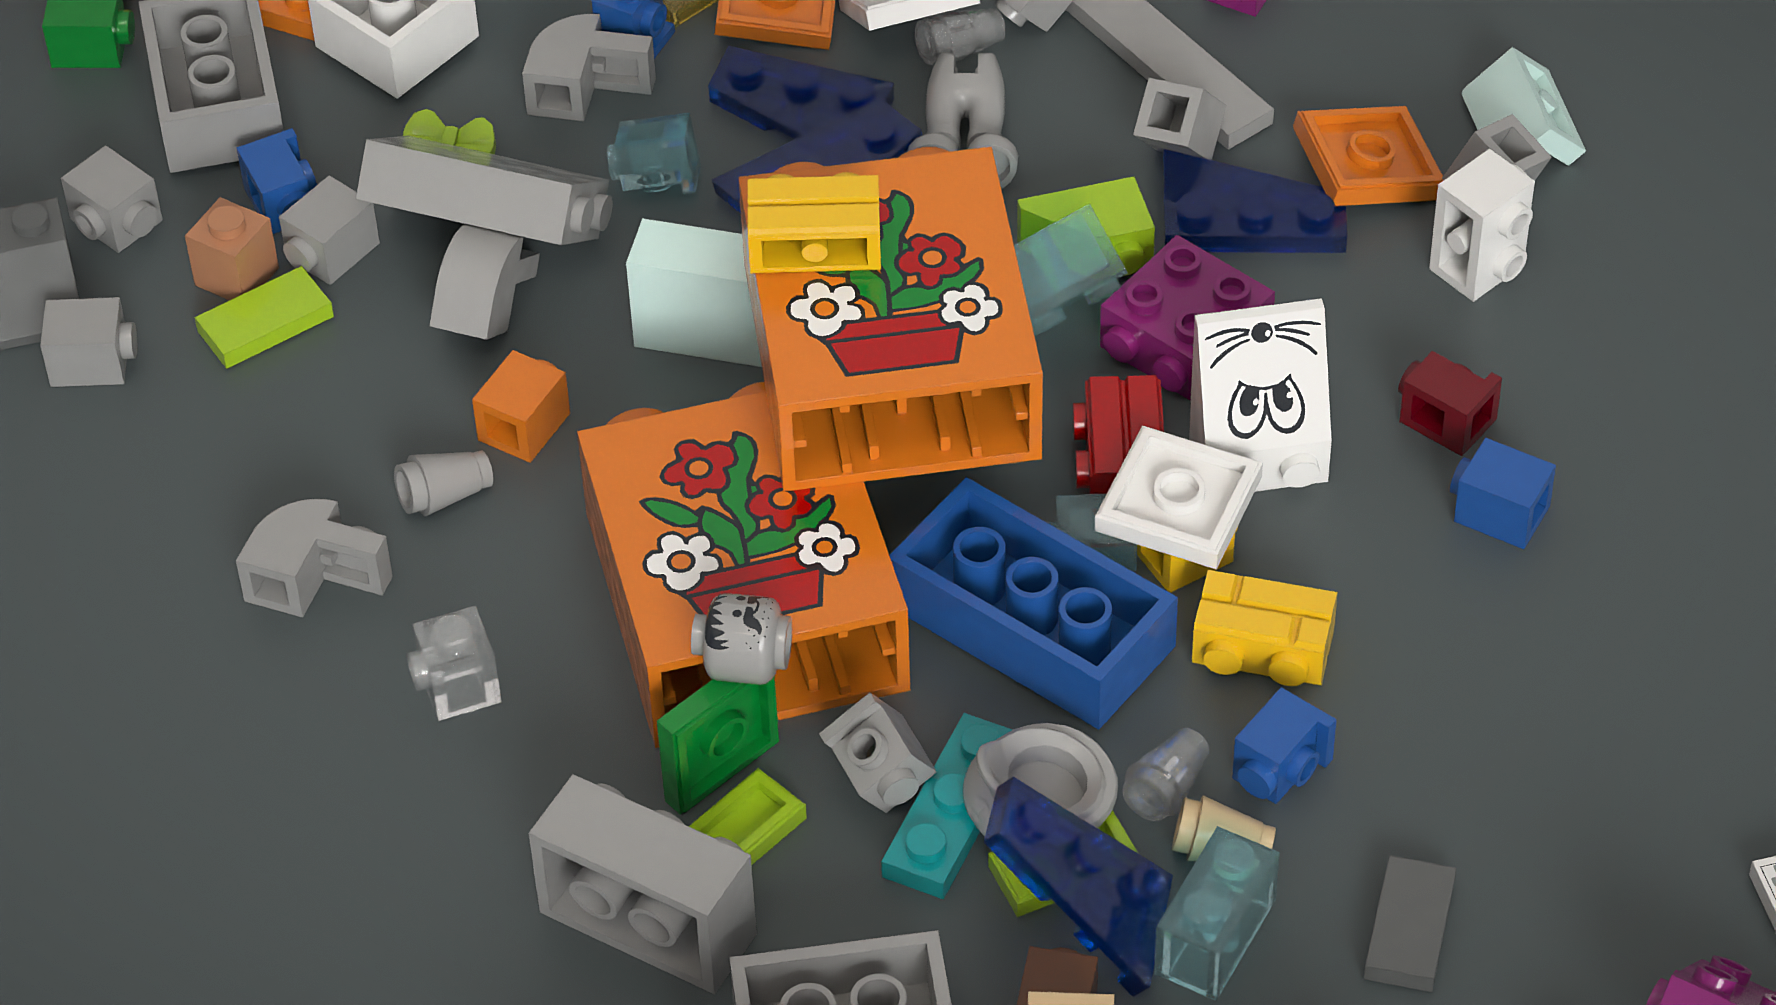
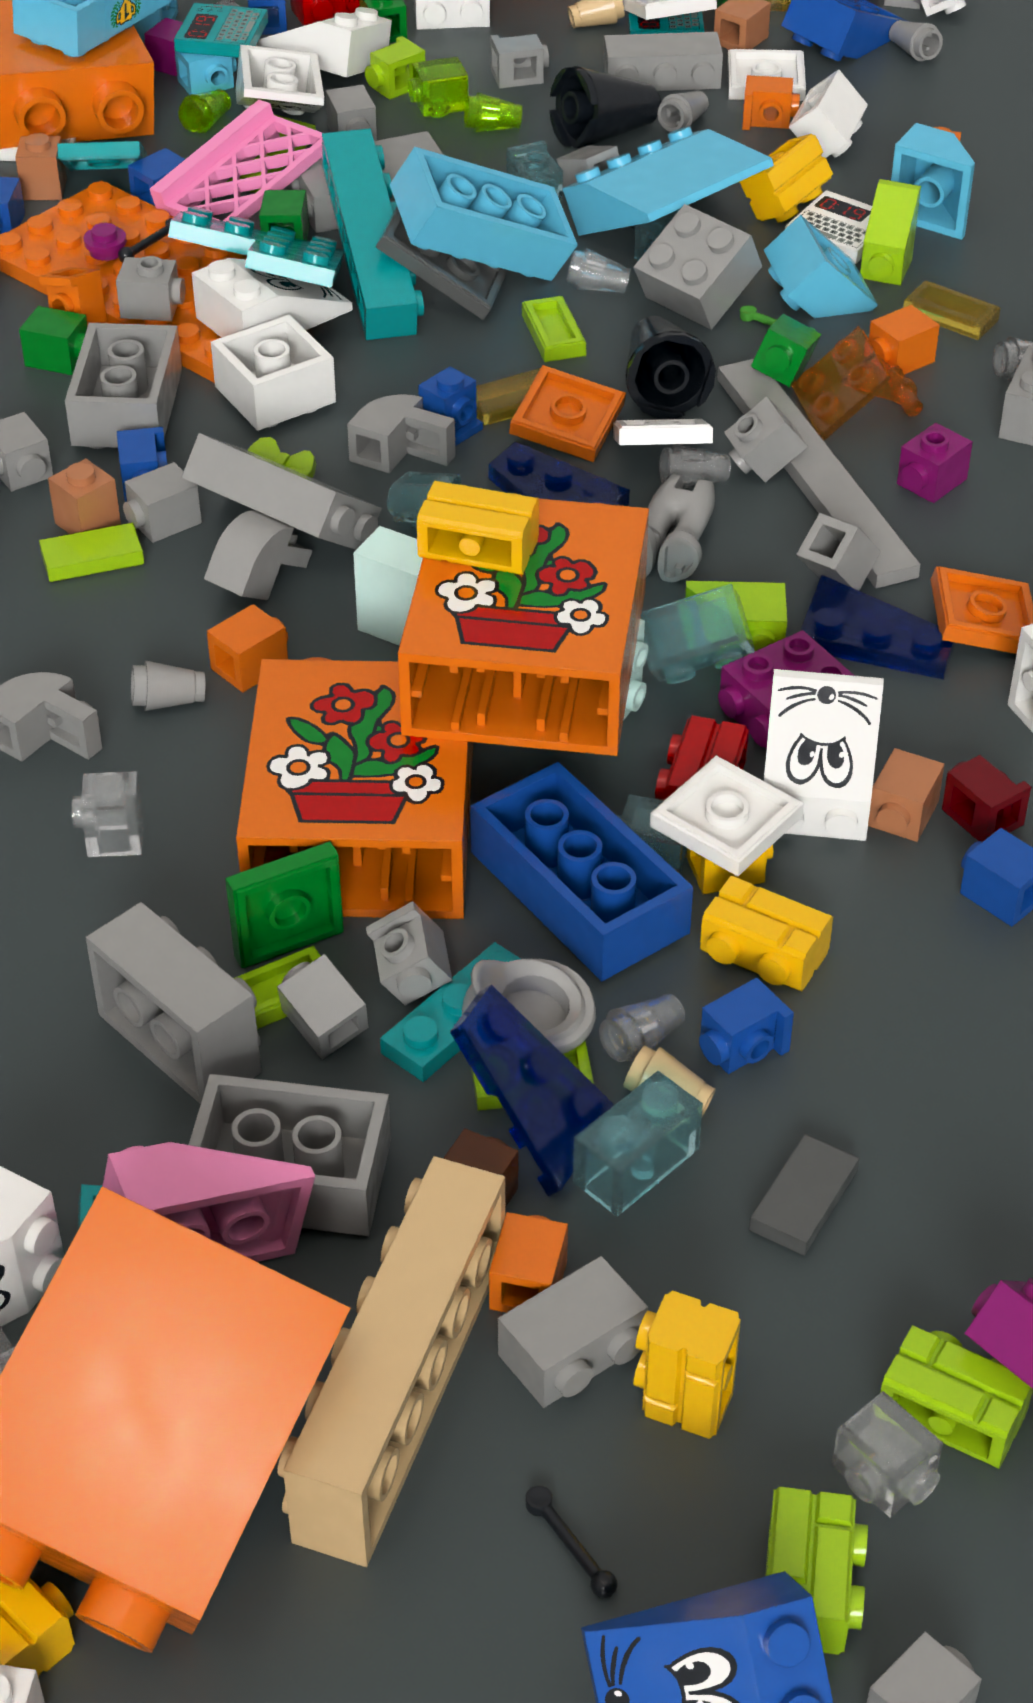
camera: 15 degrees right, 5 degrees down
(742, 638) = (313, 828): light grey head -> none
(806, 840) = (322, 1005): none -> light grey brick
(1361, 415) = (905, 794): none -> nougat brick

